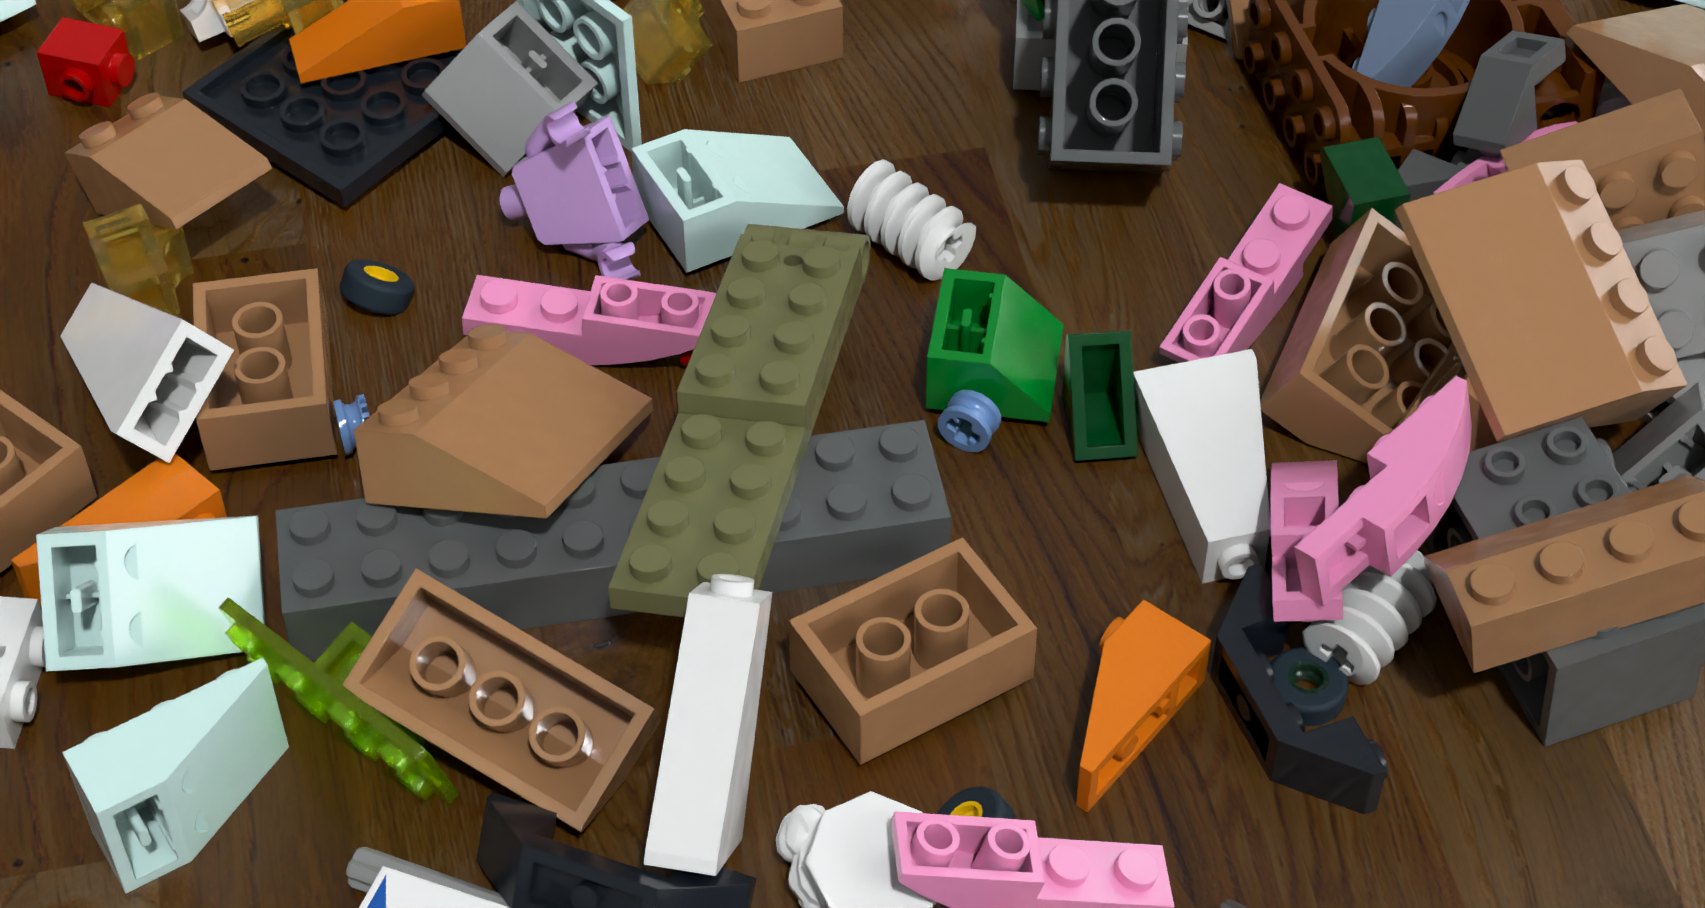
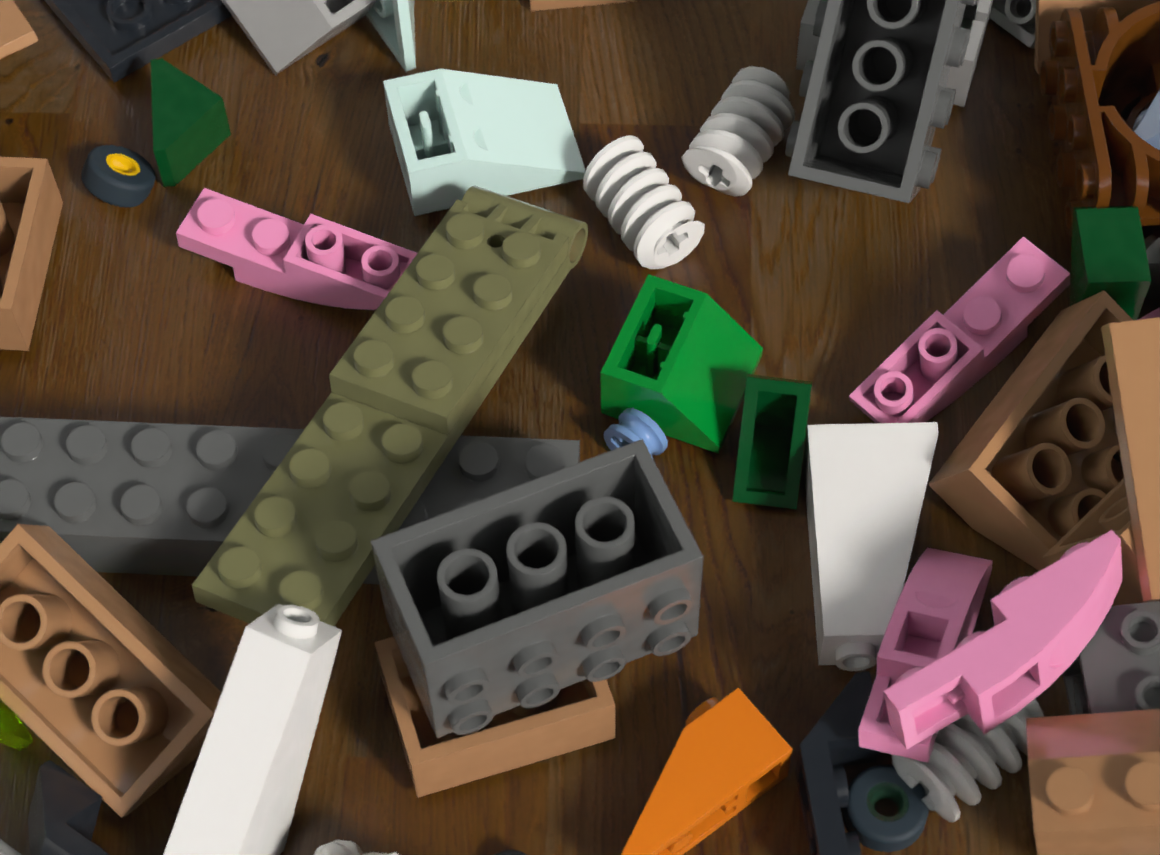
camera: 15 degrees right, 10 degrees up
(348, 419) = (47, 324): medium blue bush -> none
(433, 221) = (186, 121): none -> dark green slope
(496, 428) = (160, 371): medium nougat slope -> none
(578, 191) = (325, 118): lavender torso -> none
(949, 521) = (540, 588): none -> dark grey brick
(983, 145) = (741, 132): none -> white piece

